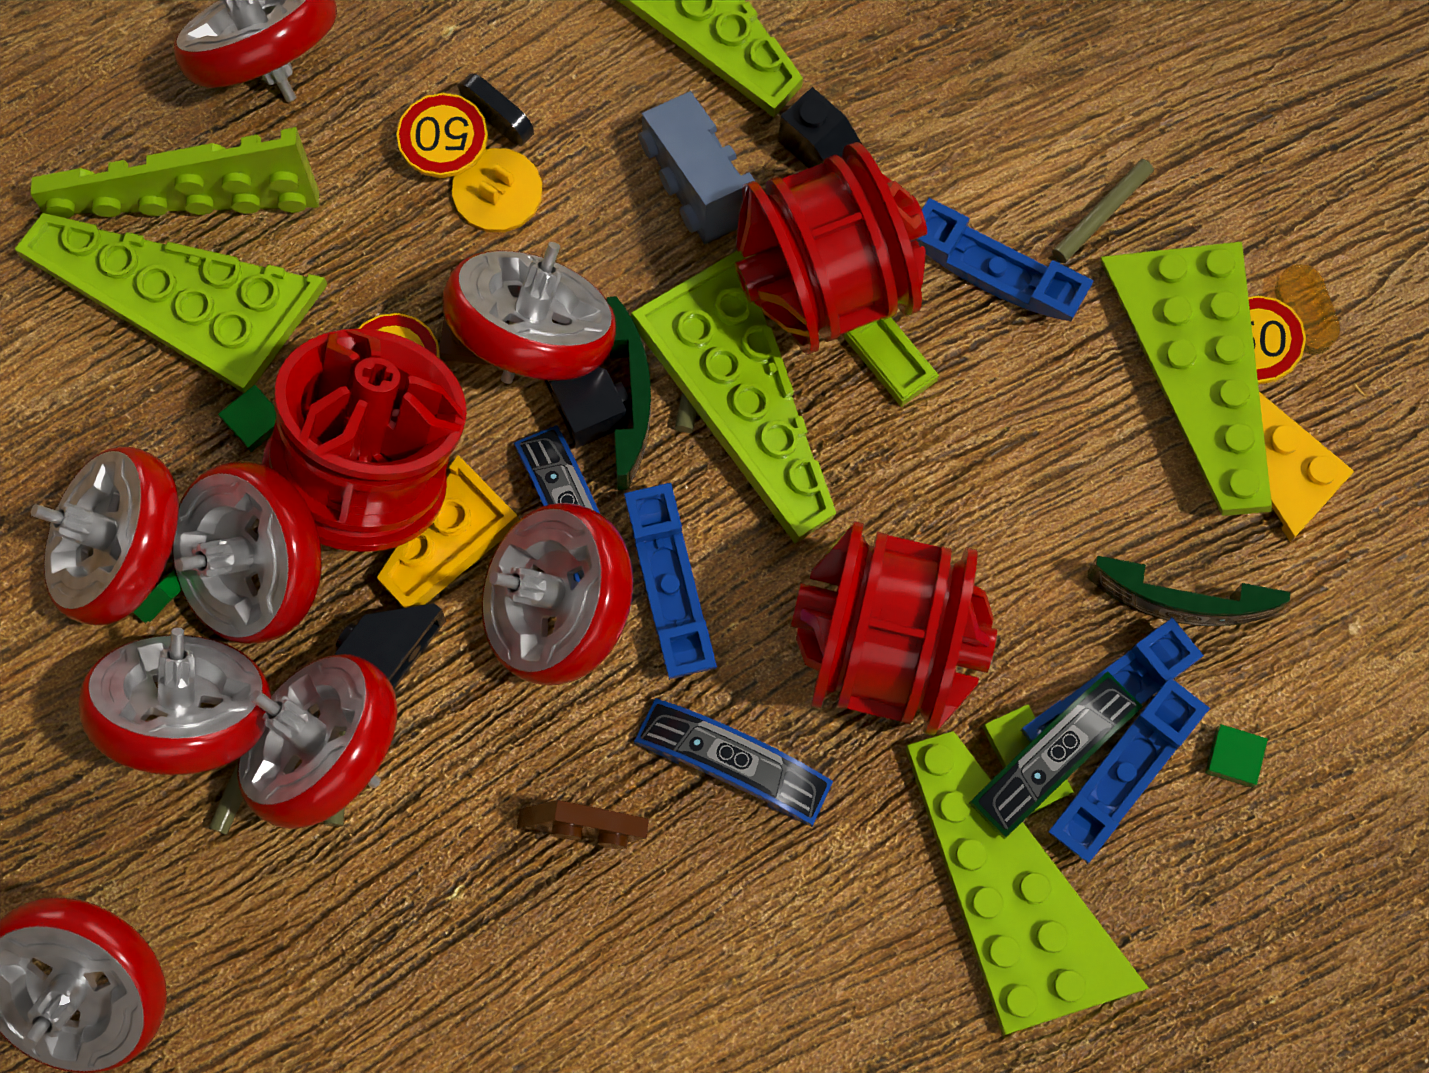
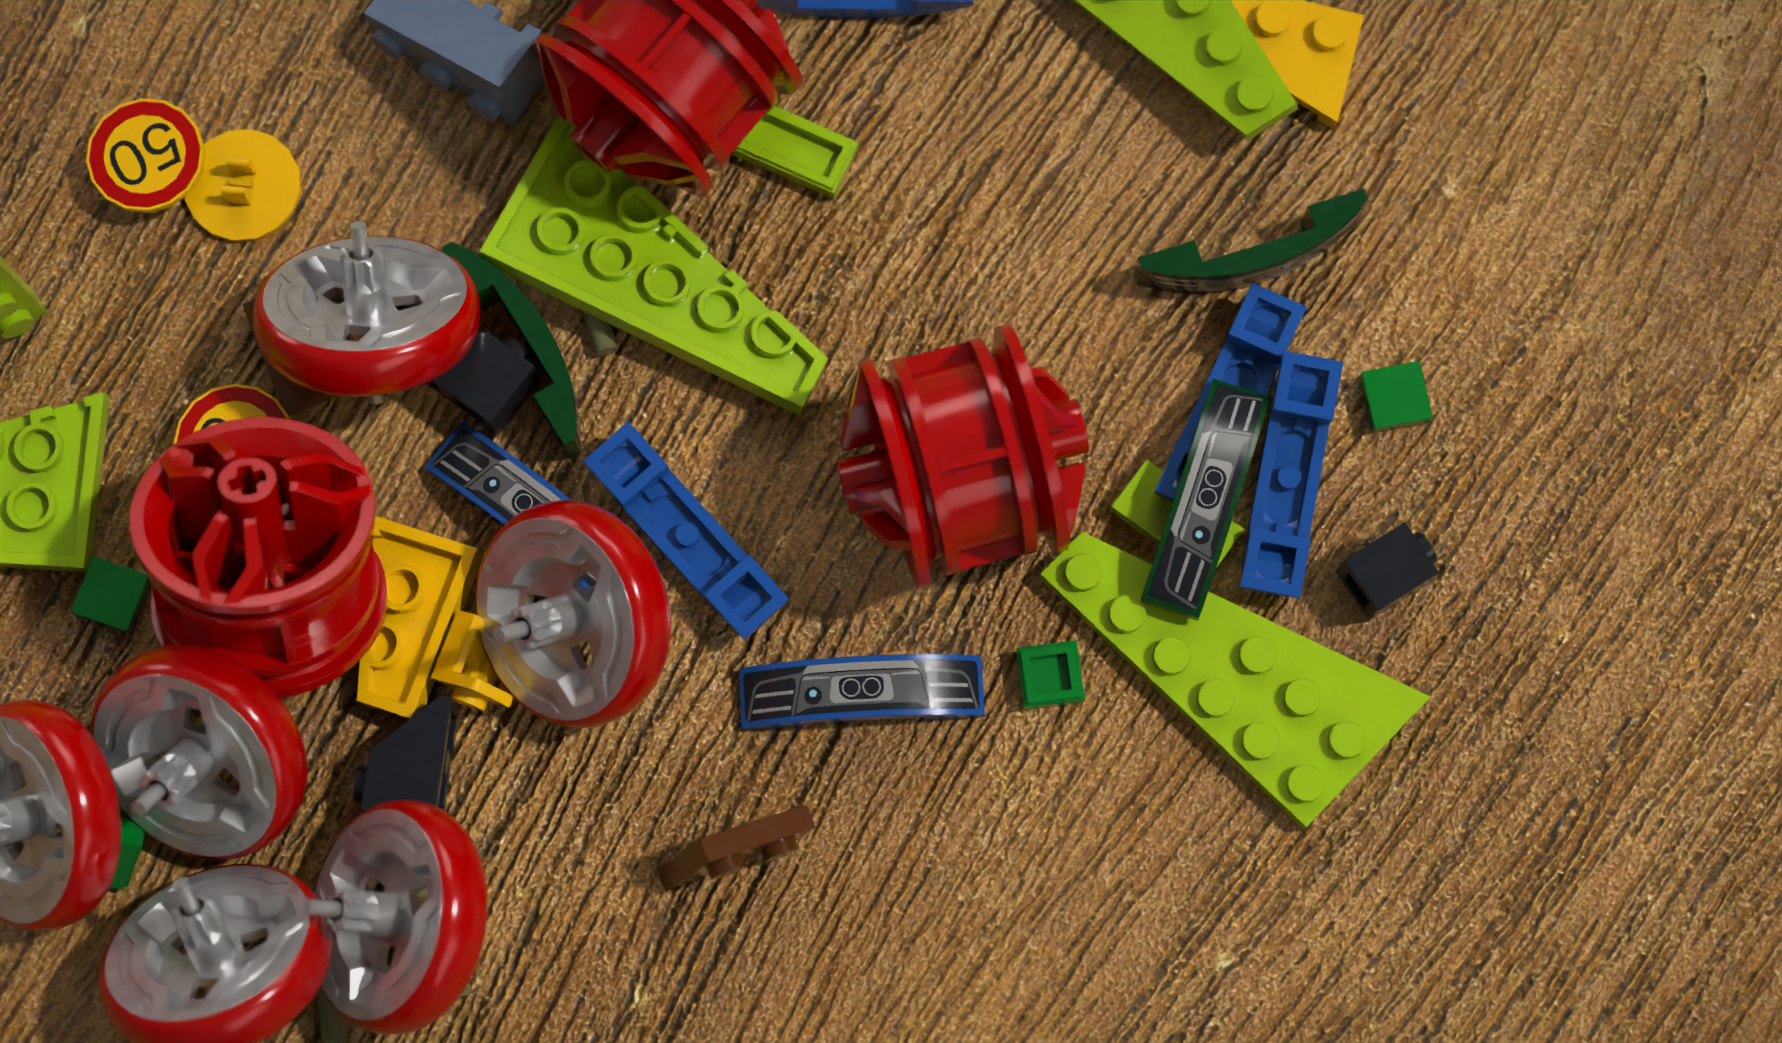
camera: 25 degrees left, 5 degrees up
(464, 592) = (465, 666): none -> yellow bracket
(497, 109) = (191, 92): black tile -> none
(875, 822) = (1050, 675): none -> green tile
(1165, 878) = (1388, 570): none -> black brick

